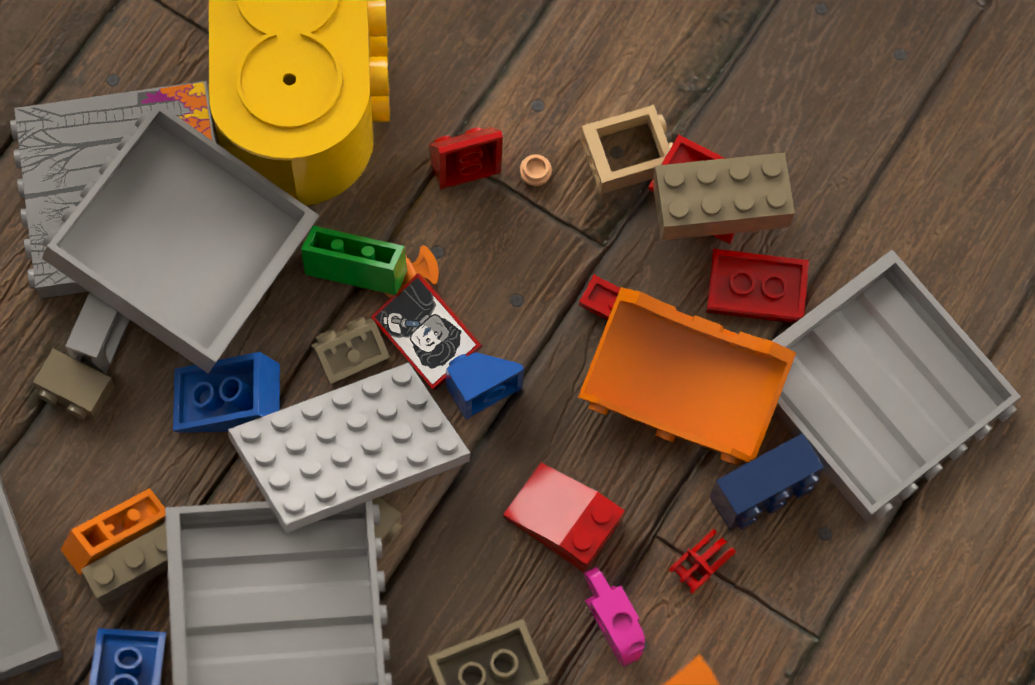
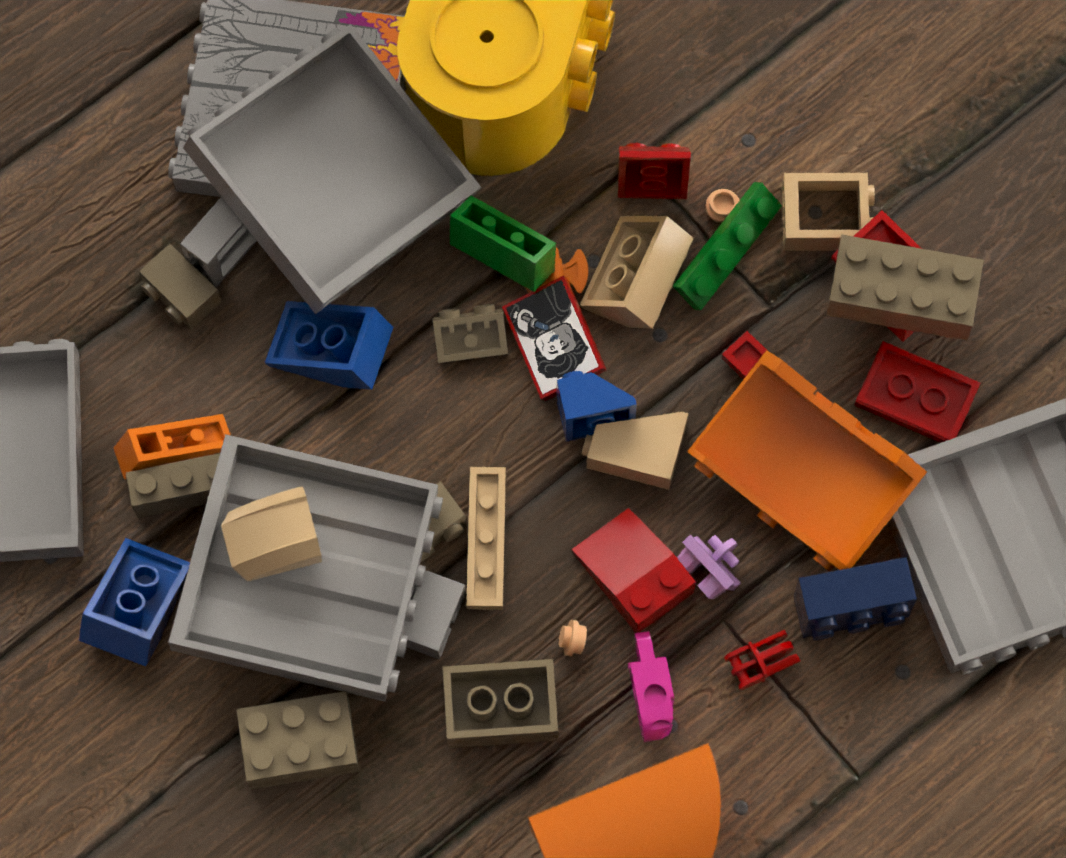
camera: 25 degrees right, 0 degrees up
(238, 586) = (271, 535): none -> tan slope
(348, 446) = (432, 430): plate -> none
(403, 605) = (436, 608): none -> light grey piece
(427, 538) = (486, 538): none -> tan plate
(480, 249) = (637, 270): none -> tan slope
(531, 594) = (572, 638): none -> light nougat plate
(533, 407) = (638, 448): none -> tan slope
(551, 204) = (727, 246): none -> green plate
(642, 499) = (720, 576): none -> lavender hips

